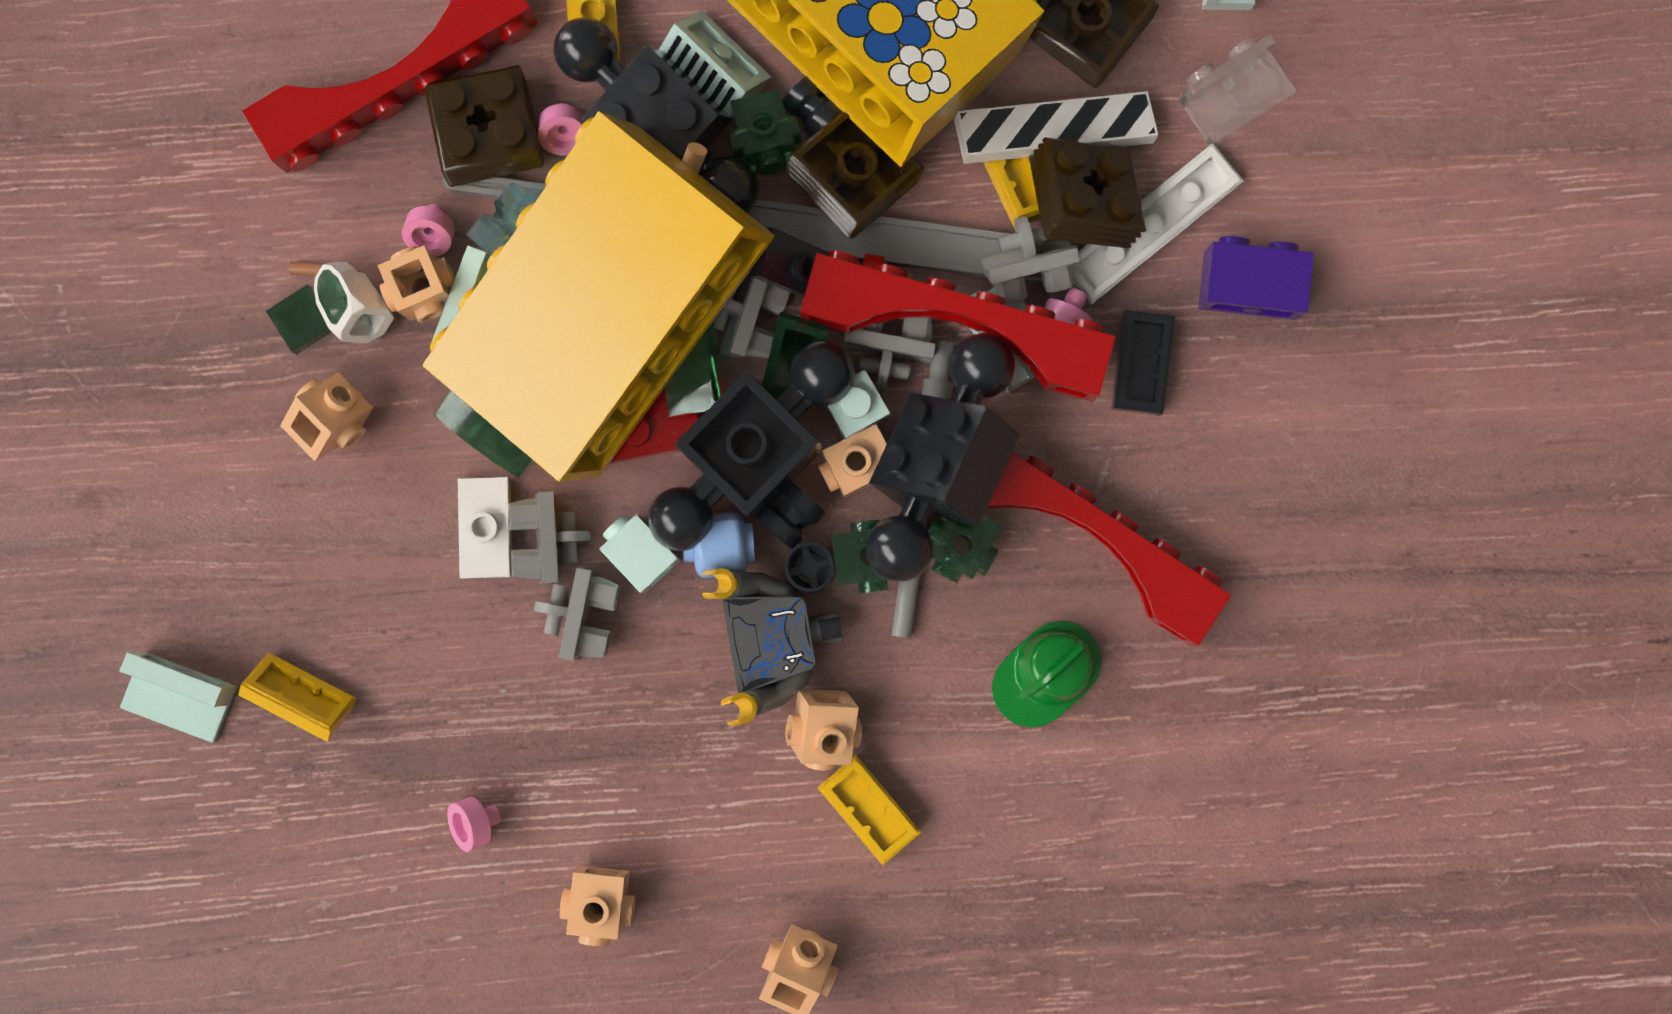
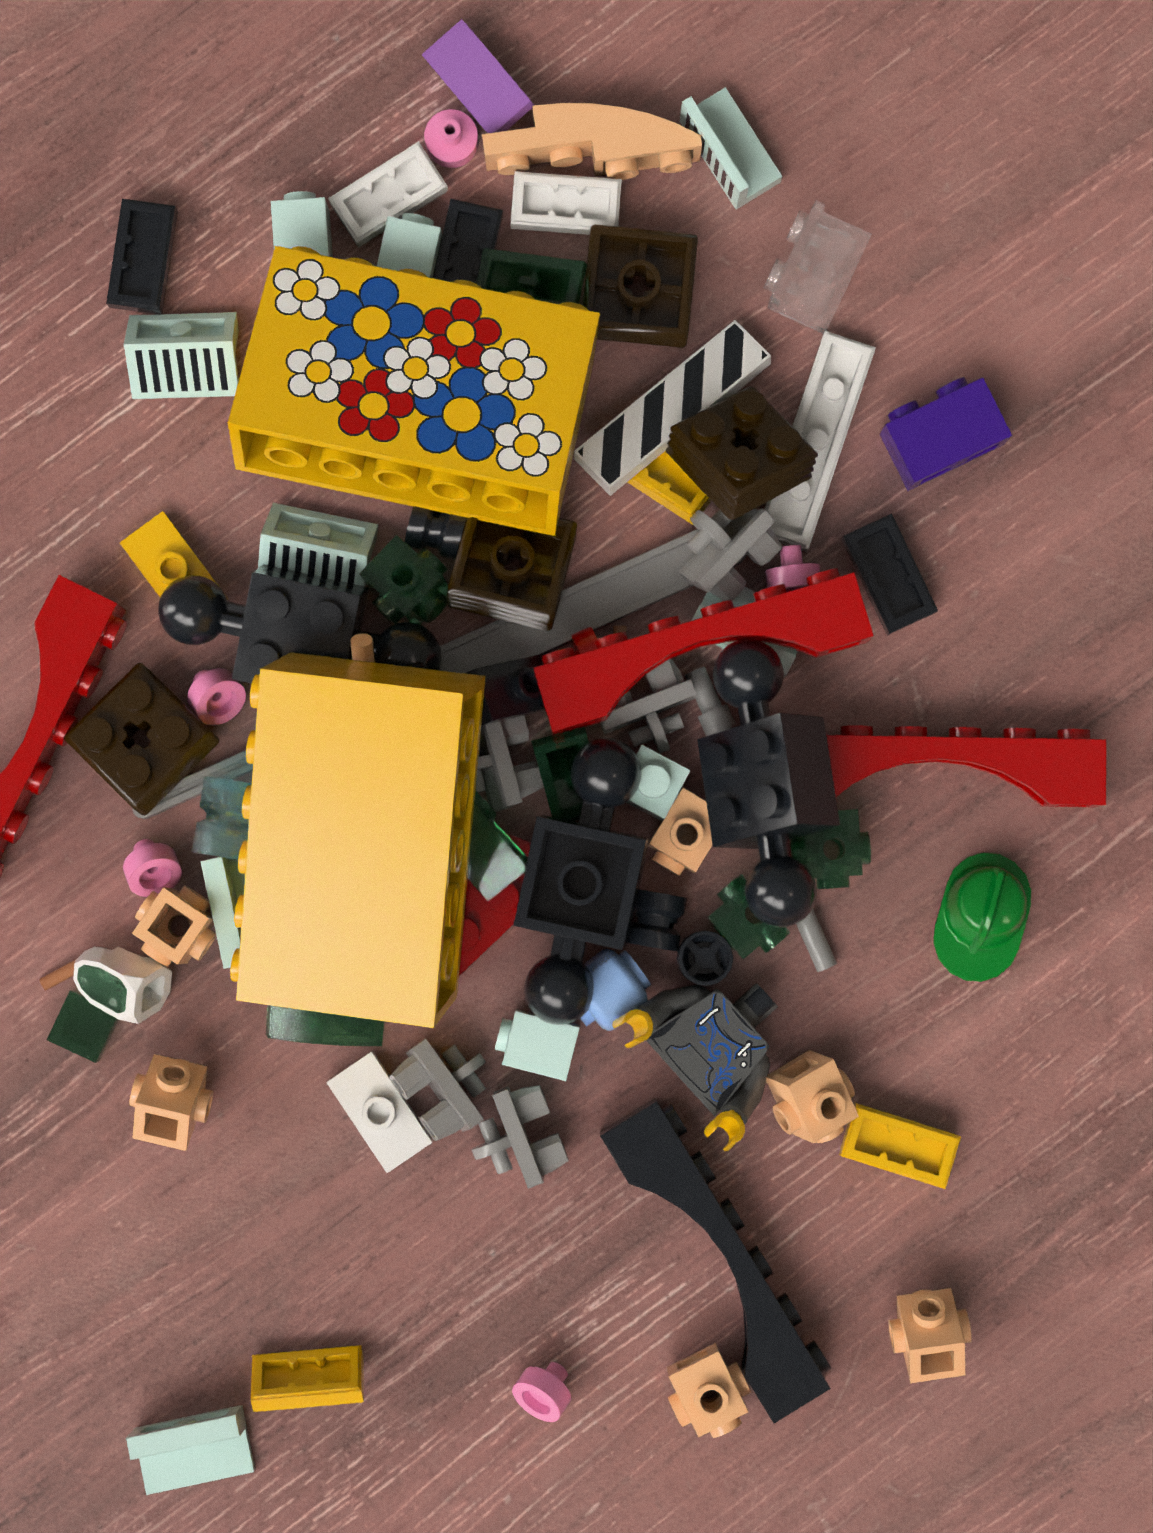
camera: 30 degrees left, 0 degrees up
(667, 915) = (774, 1356): none -> black arch

